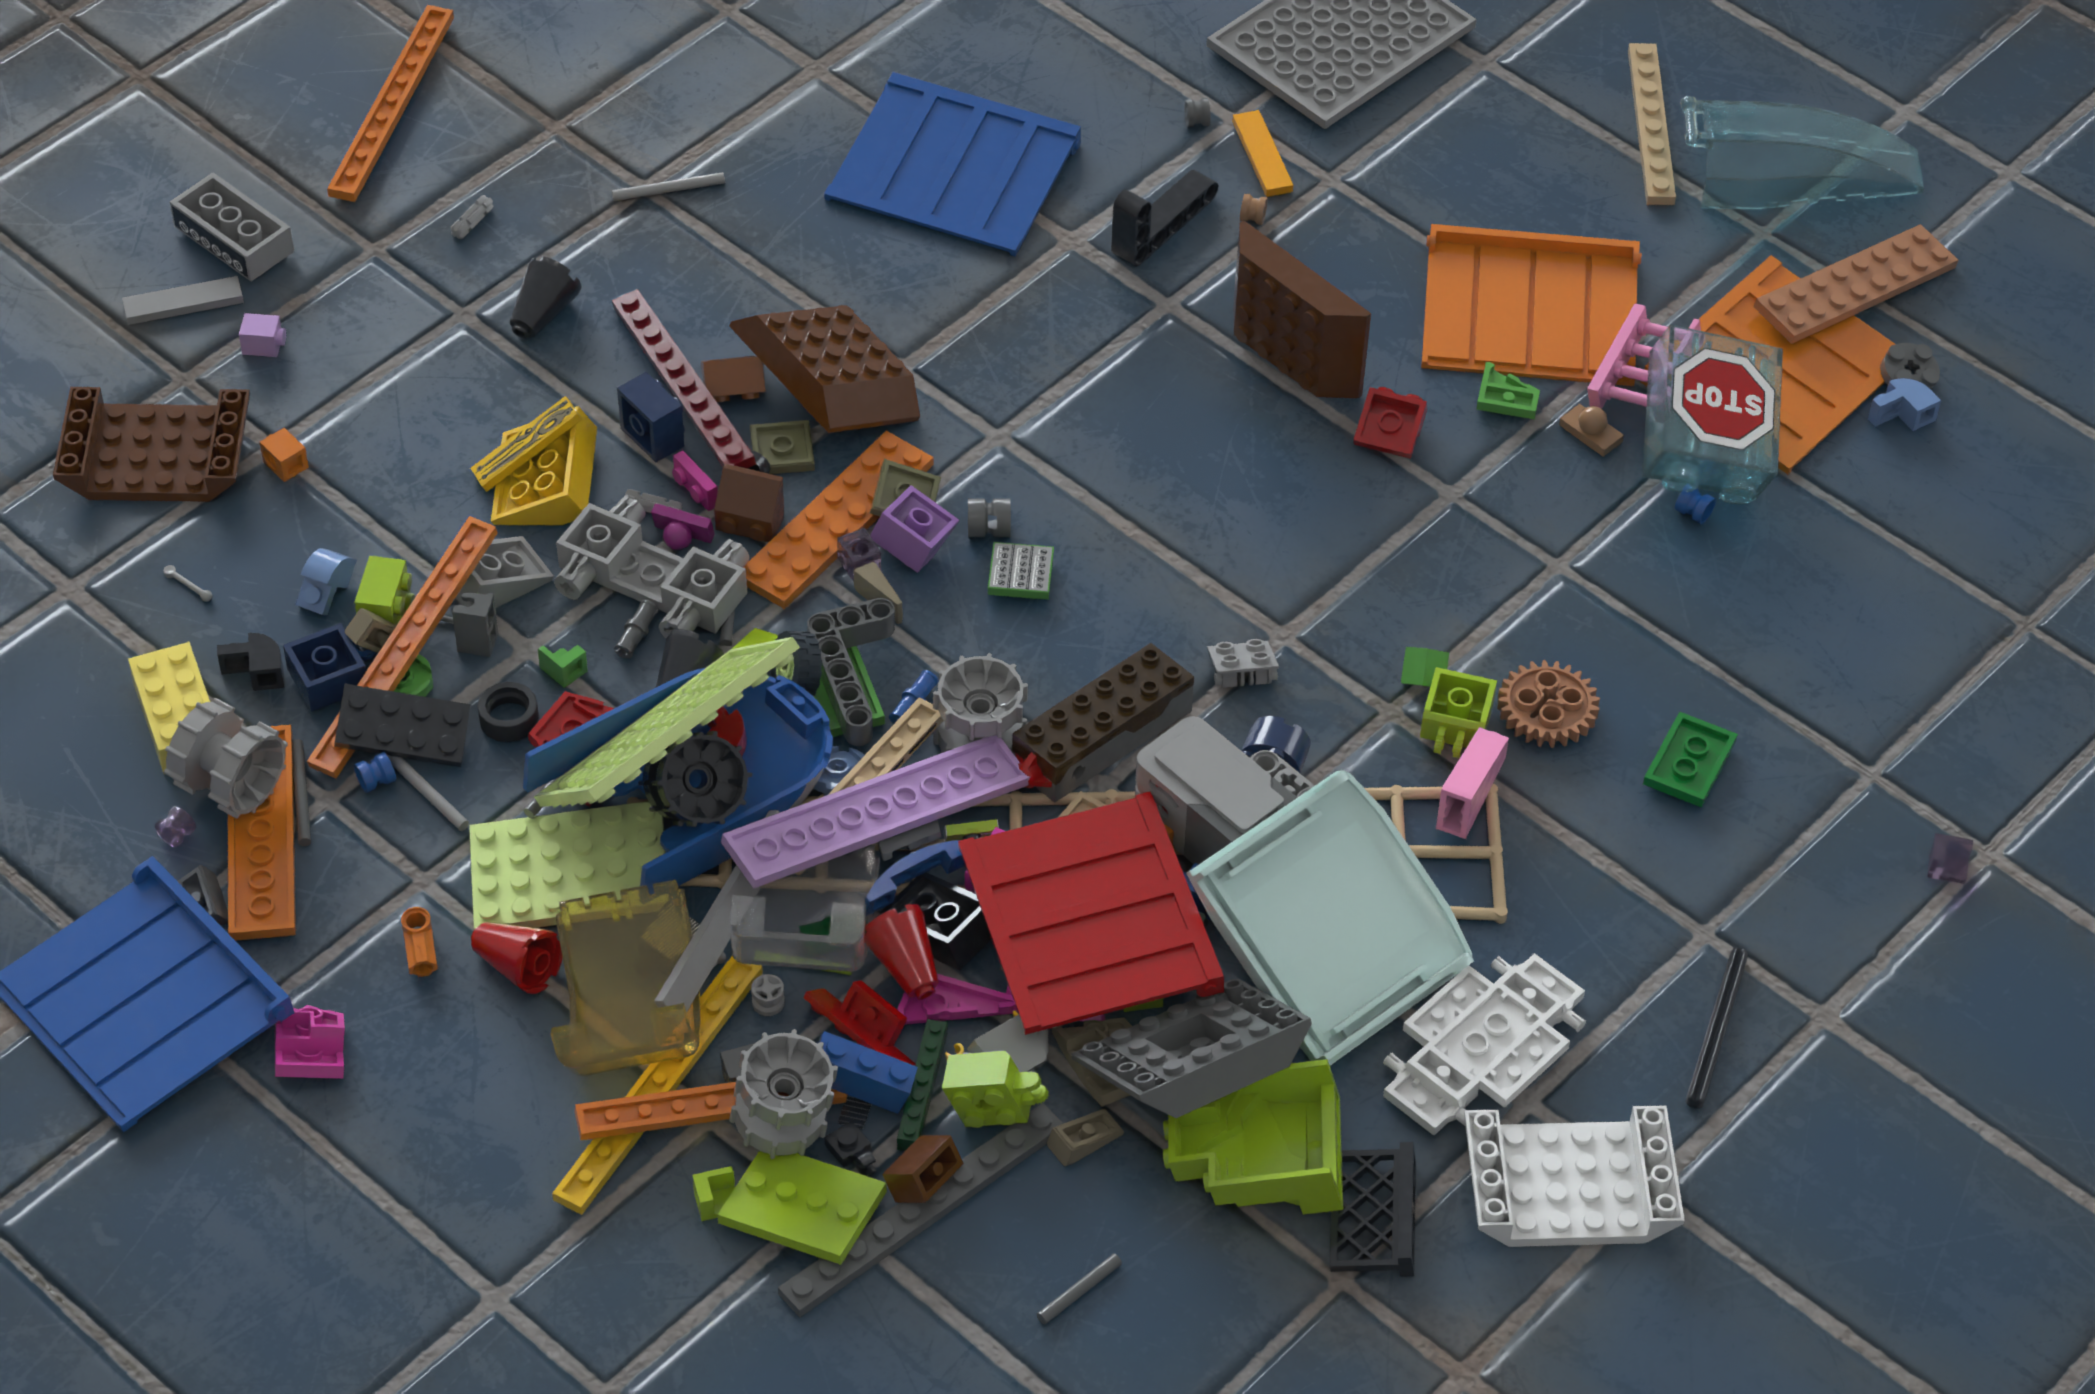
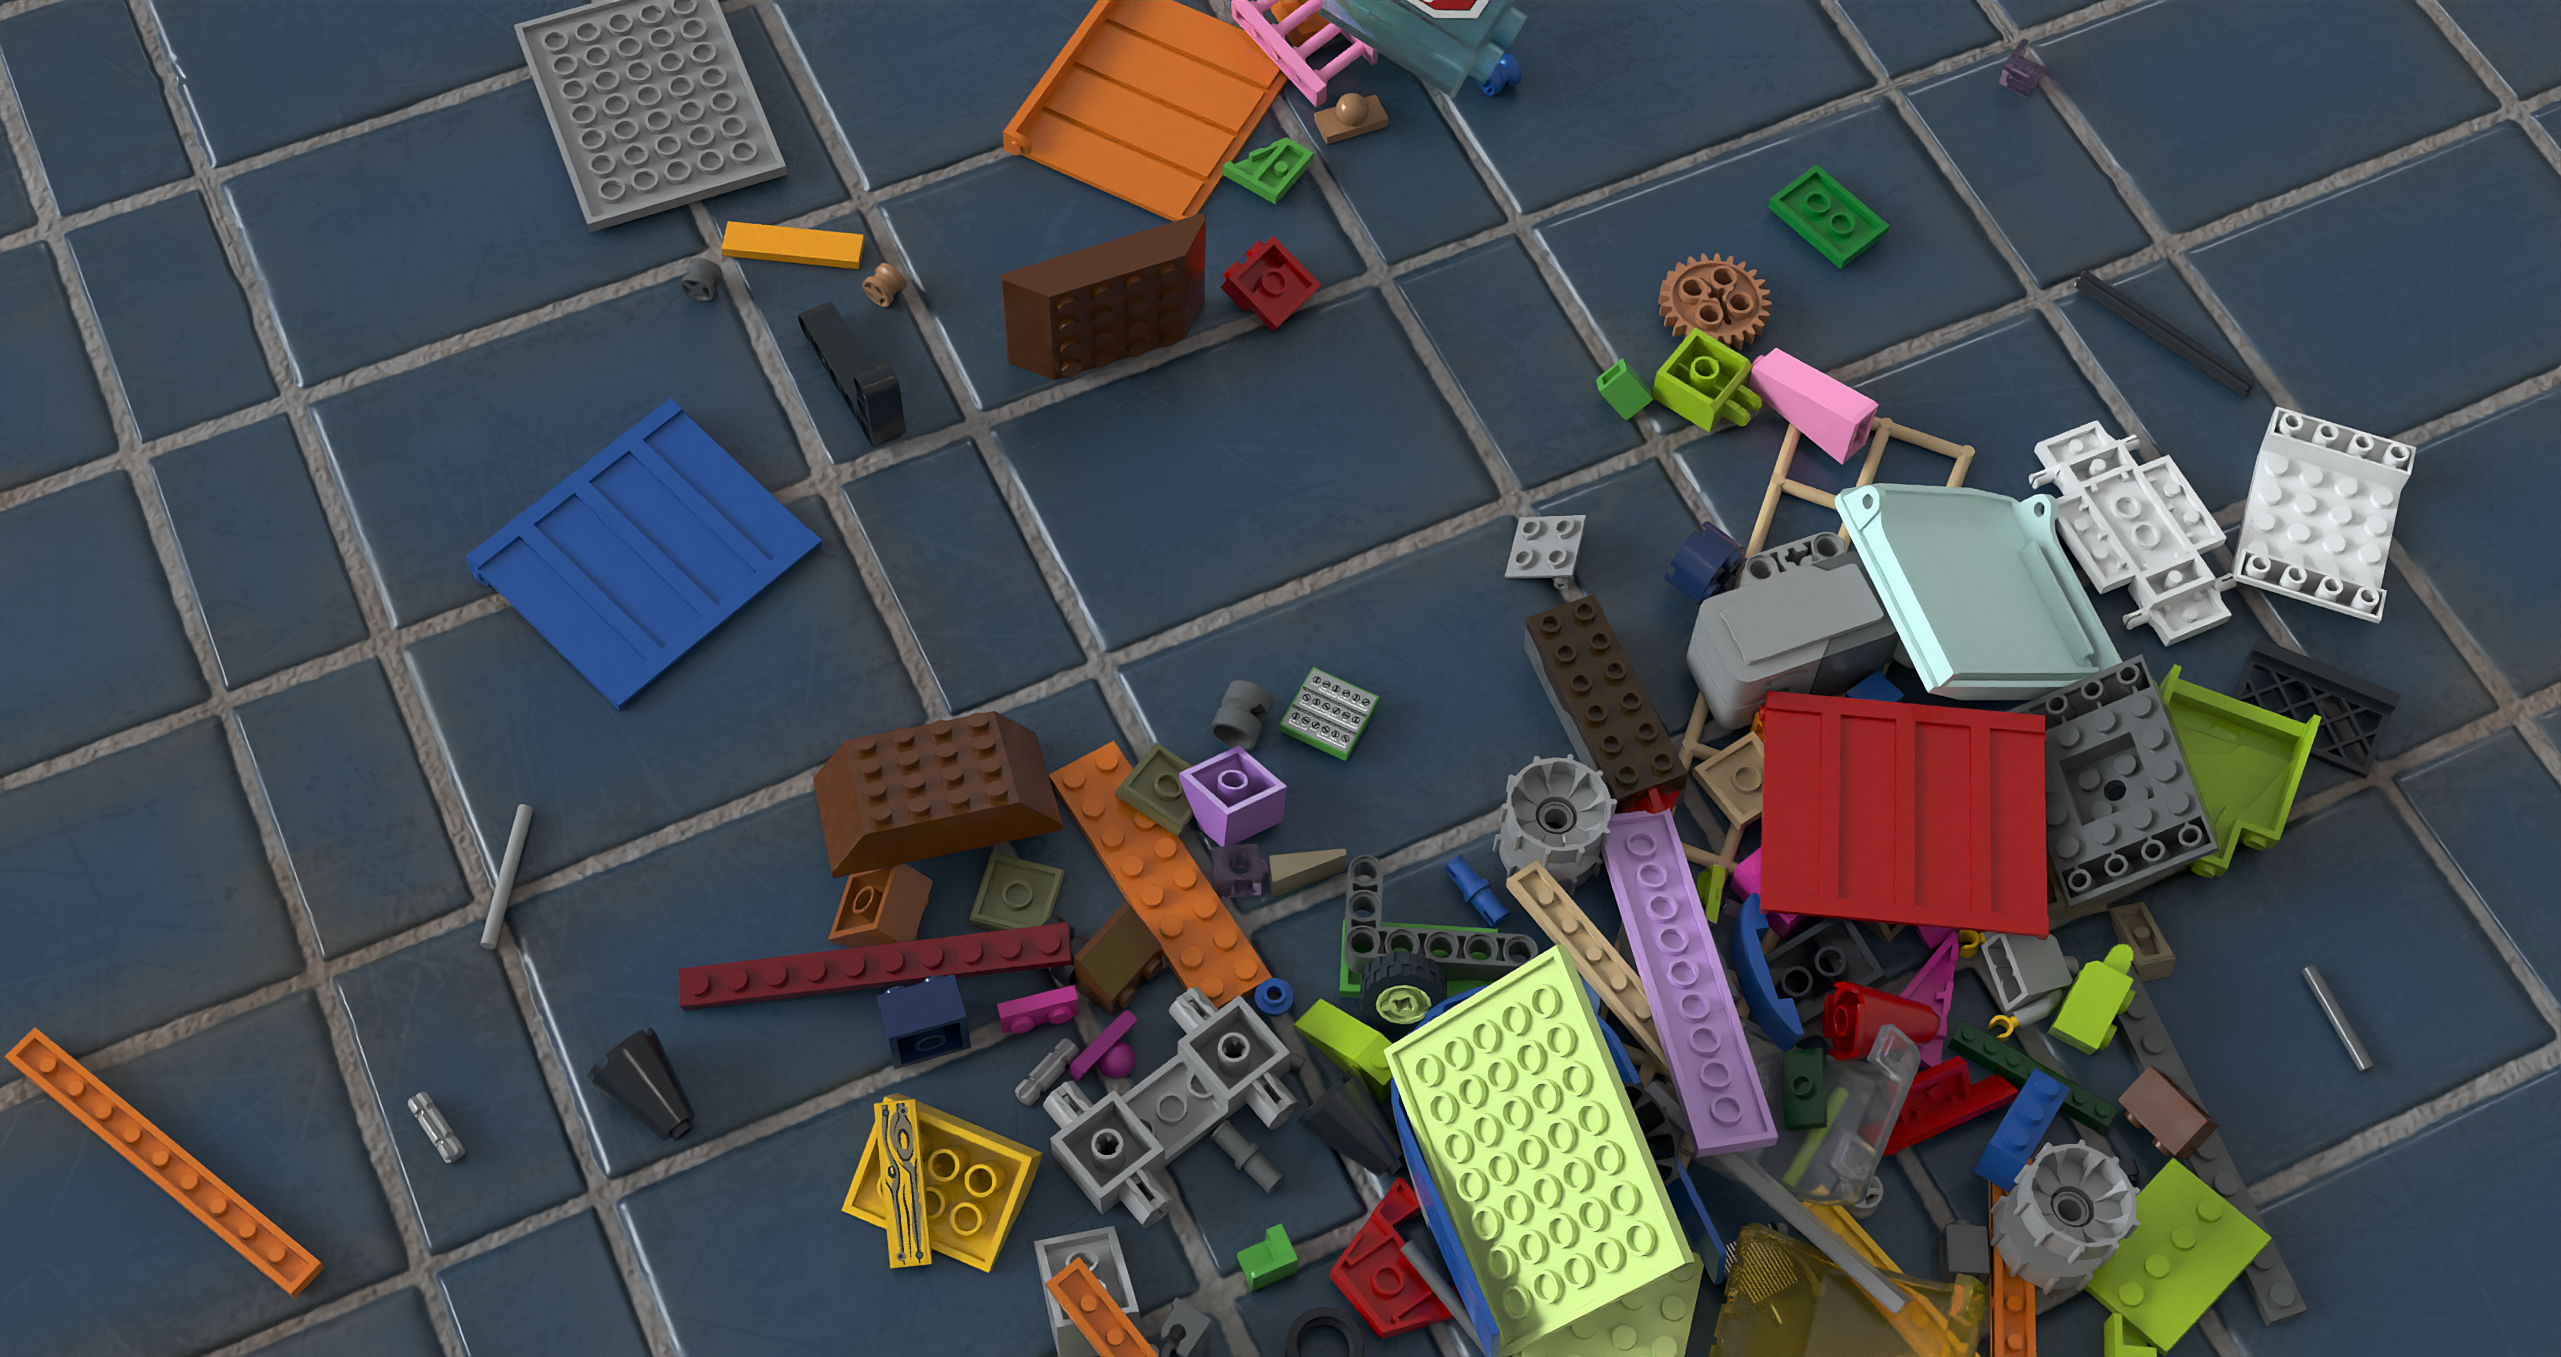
camera: 70 degrees left, 10 degrees up
(769, 609) = (1274, 1007): none -> blue plate

